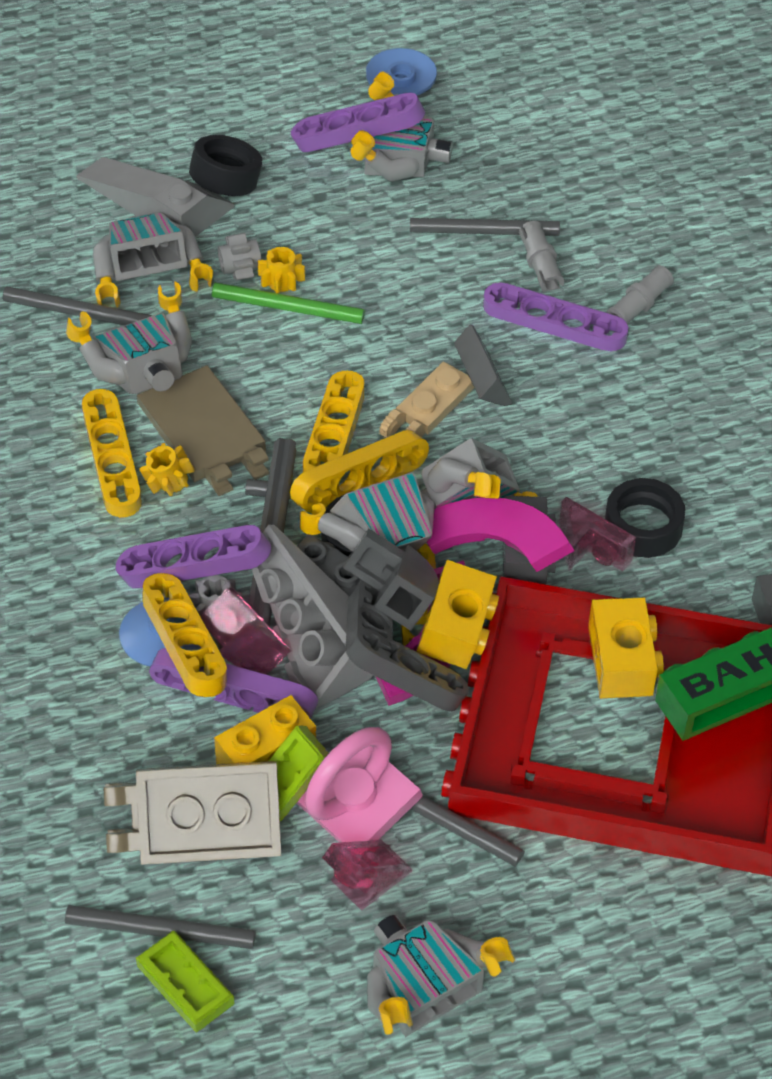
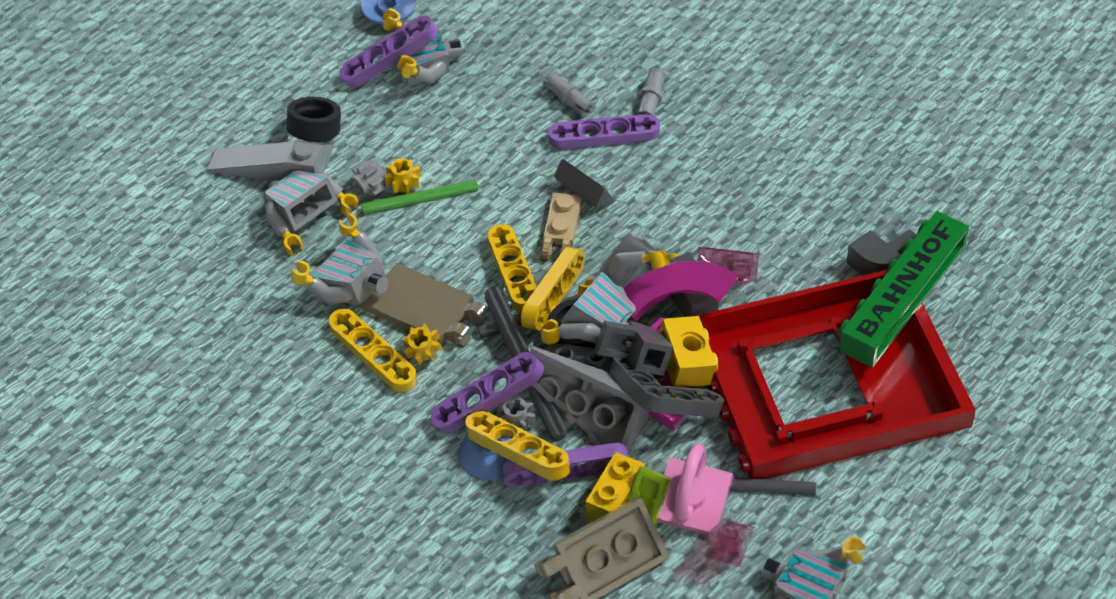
camera: 25 degrees left, 0 degrees up
(71, 306) = (274, 262): dark grey bar -> none
(243, 634) = (553, 426): clear pink slope -> none
(477, 226) = (511, 91): dark grey bar -> none
(620, 669) = (802, 326): yellow brick -> none
(655, 494) = (752, 221): black tyre -> none

